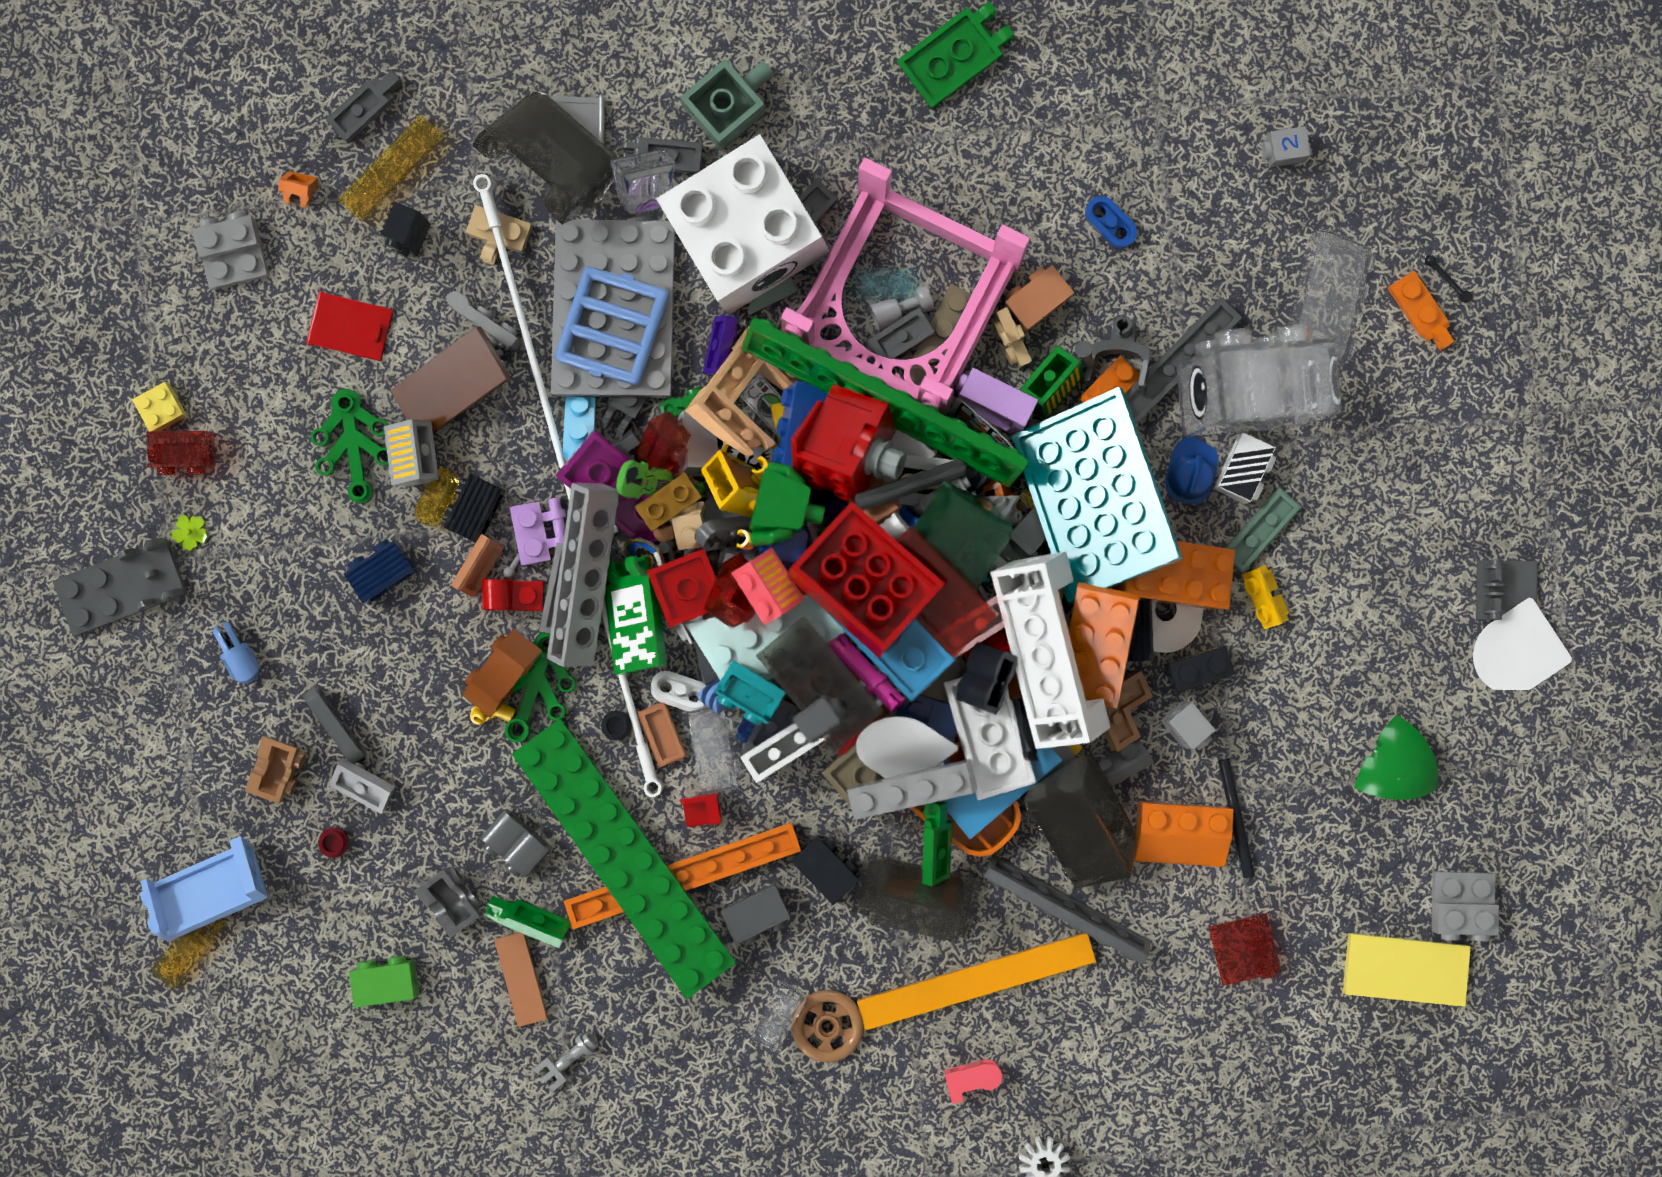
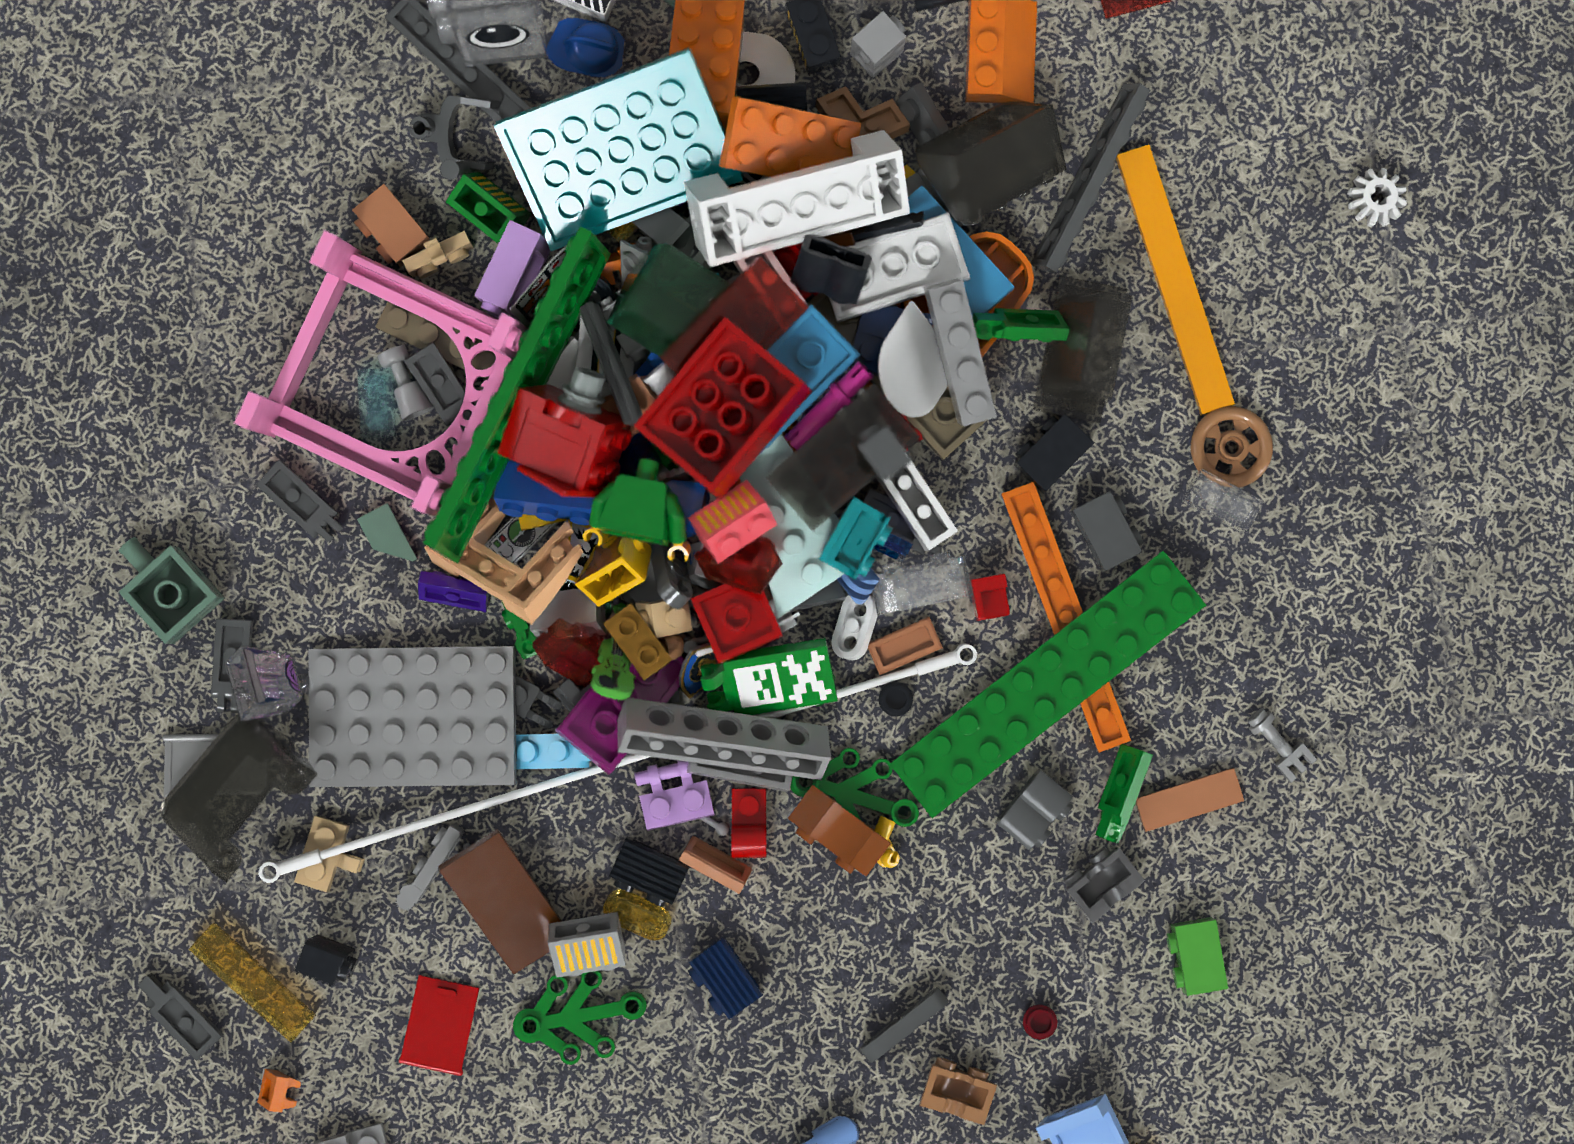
camera: 90 degrees left, 0 degrees up
(362, 786) = (973, 990): light grey plate -> none
(641, 349) = (438, 760): medium blue bar -> none
(743, 225) = (312, 563): white brick -> none
(954, 54) = (107, 329): green tile -> none
(972, 1076) = (1283, 281): coral leg -> none
(1112, 221) = (297, 142): blue plate -> none
(1119, 374) = (481, 135): orange hinge -> none

